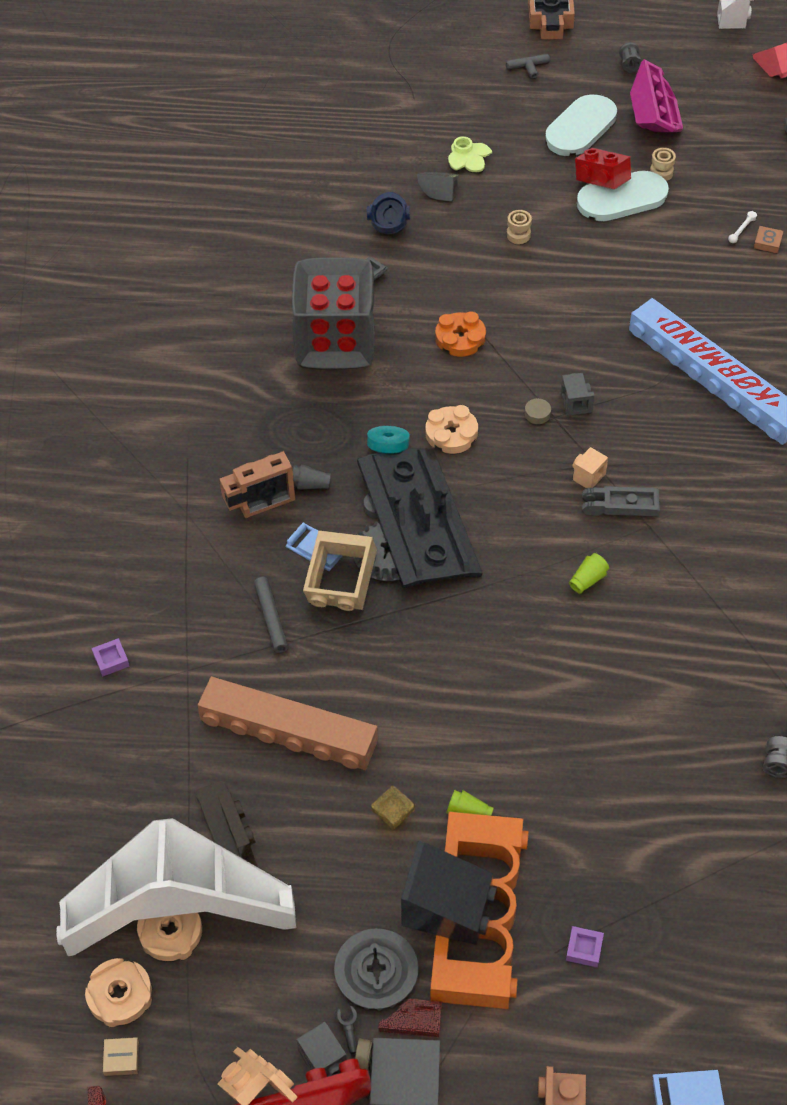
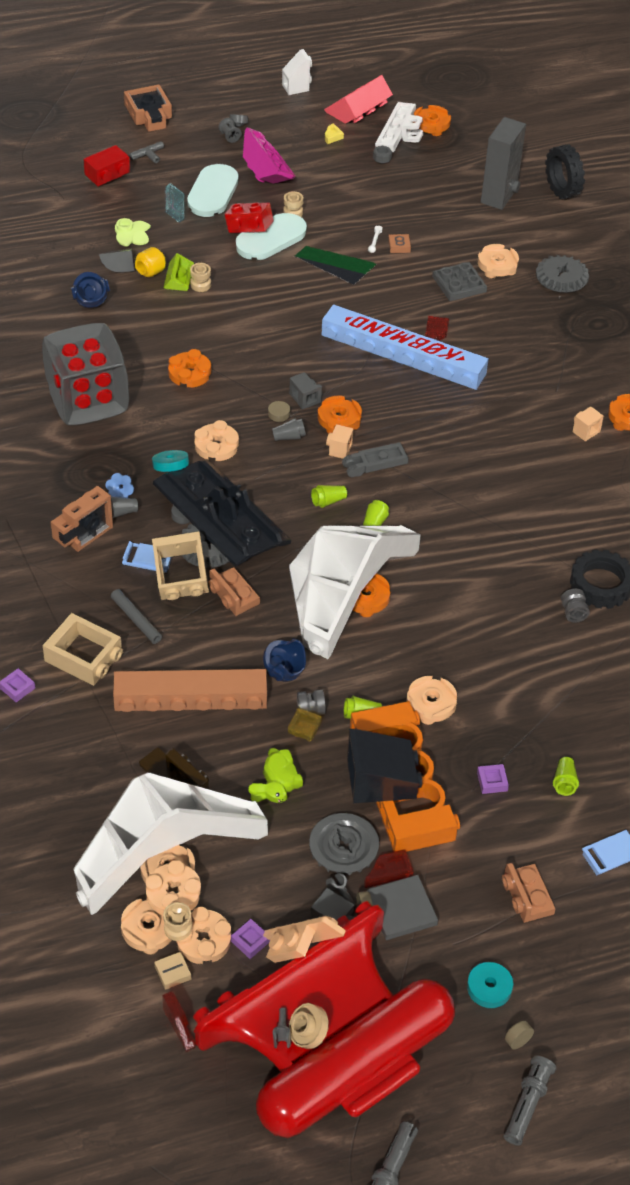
camera: 25 degrees left, 5 degrees down
(139, 996) = (177, 921): none -> tan wheel
(158, 942) = (172, 875): none -> light nougat plate
(166, 1044) = (211, 949): none -> light nougat plate
(181, 617) = (56, 655): none -> tan window
(220, 1048) = (249, 939): none -> medium lavender tile
(319, 455) = (115, 483): none -> medium blue plant
(339, 862) = (280, 778): none -> lime animal
(390, 615) = (233, 590): none -> nougat bracket
(404, 720) = (284, 659): none -> dark blue cap
(414, 782) = (312, 702): none -> flat silver wheel
(471, 195) = (150, 262): none -> yellow head
(473, 70) = (106, 165): none -> red brick
(496, 218) = (178, 273): none -> lime slope
(508, 627) = (335, 570): none -> white panel
(529, 131) = (174, 202): none -> clear light blue plate
(534, 679) = (377, 600): none -> orange plate
(538, 438) = (290, 430): none -> dark grey cone
(546, 530) = (326, 495): none -> lime cone
(552, 838) = (432, 711): none -> light nougat plate
(608, 421) = (350, 413): none -> orange plate
(647, 47) = (239, 120): none -> dark grey tile
(672, 975) = (566, 778): none -> lime cone
(685, 248) = (339, 265): none -> dark green sticker
(749, 87) = (333, 134): none -> light yellow tile
(766, 356) = (437, 328): none -> clear red tile

